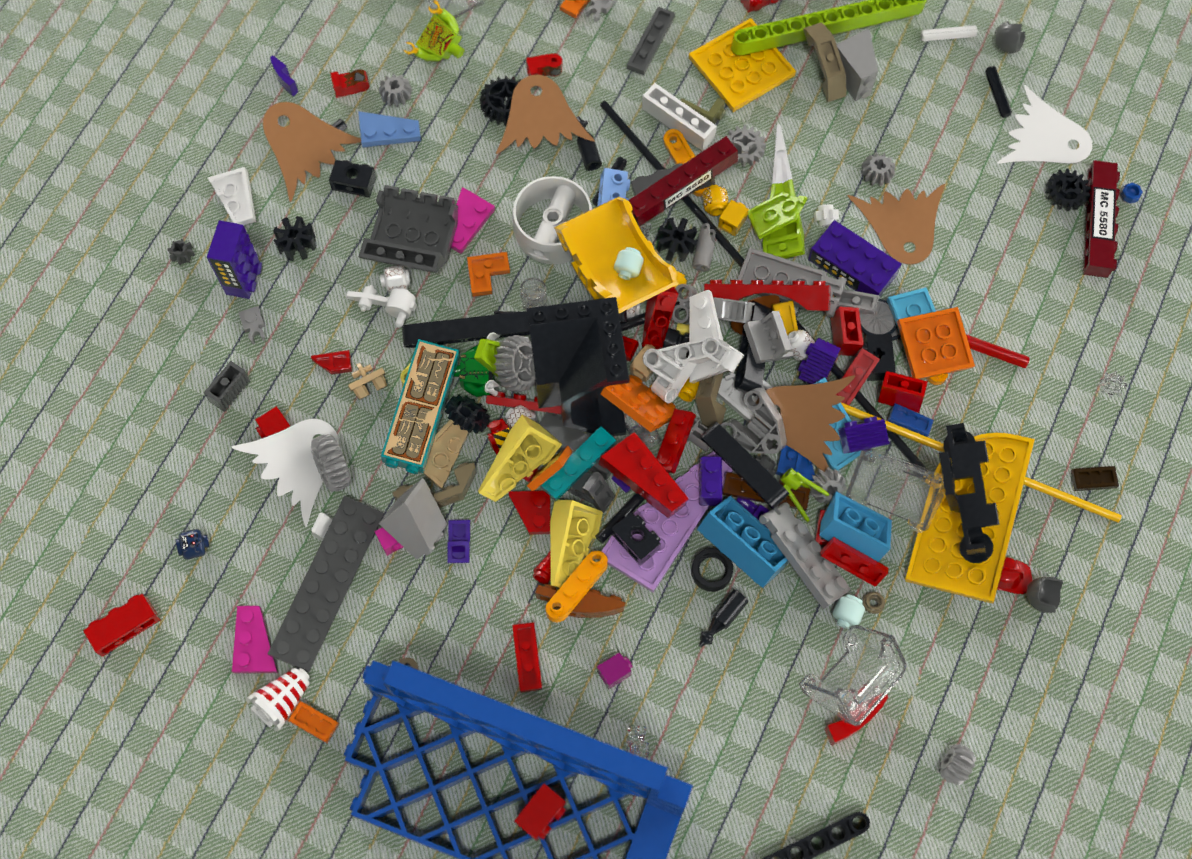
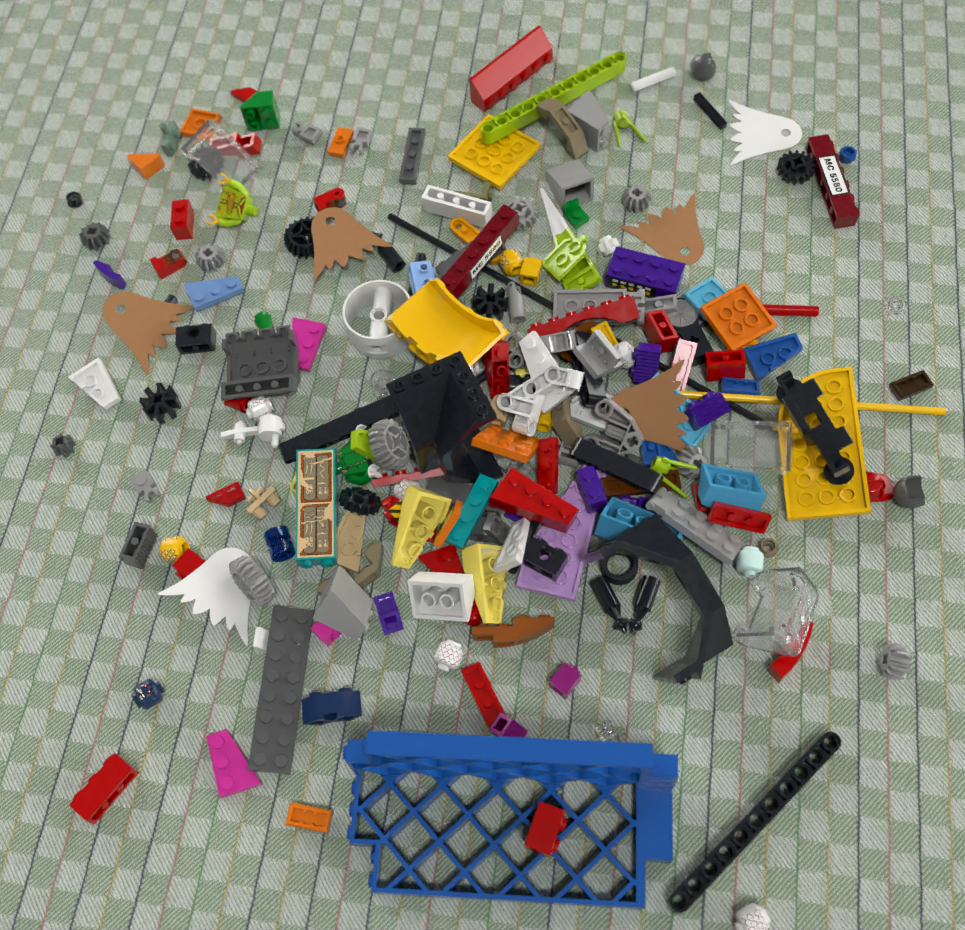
camera: 10 degrees left, 5 degrees down
(234, 259) = (111, 434): dark purple brick -> none
(261, 400) = (172, 548): none -> yellow head
(278, 698) = (270, 807): white cone -> none
(280, 26) = (94, 236): none -> dark grey gear
(370, 619) = (331, 707): none -> dark blue brick
(371, 432) = (279, 542): none -> clear blue wheel
(376, 267) = (238, 404): none -> red cone
(378, 37) = (182, 219): none -> red brick
(430, 182) = (263, 320): none -> green cone
(483, 267) = (333, 376): orange plate -> none
(505, 605) = (448, 655): none -> white head
(518, 542) = (441, 596): none -> white slope
(538, 701) = (507, 727): none -> magenta brick
(576, 586) = (506, 617): light orange plate -> none
(609, 515) = (513, 547): none -> white wing
(628, 263) = (457, 330): light aqua head -> none
(688, 605) = (609, 602): none -> black wheel
(752, 566) = (658, 544): none -> black panel
(805, 166) = (574, 213): none -> green bracket
(811, 130) = (571, 182): none -> light grey slope
(896, 73) = (622, 120): none -> lime plant
(957, 395) = (771, 354): none -> blue wing

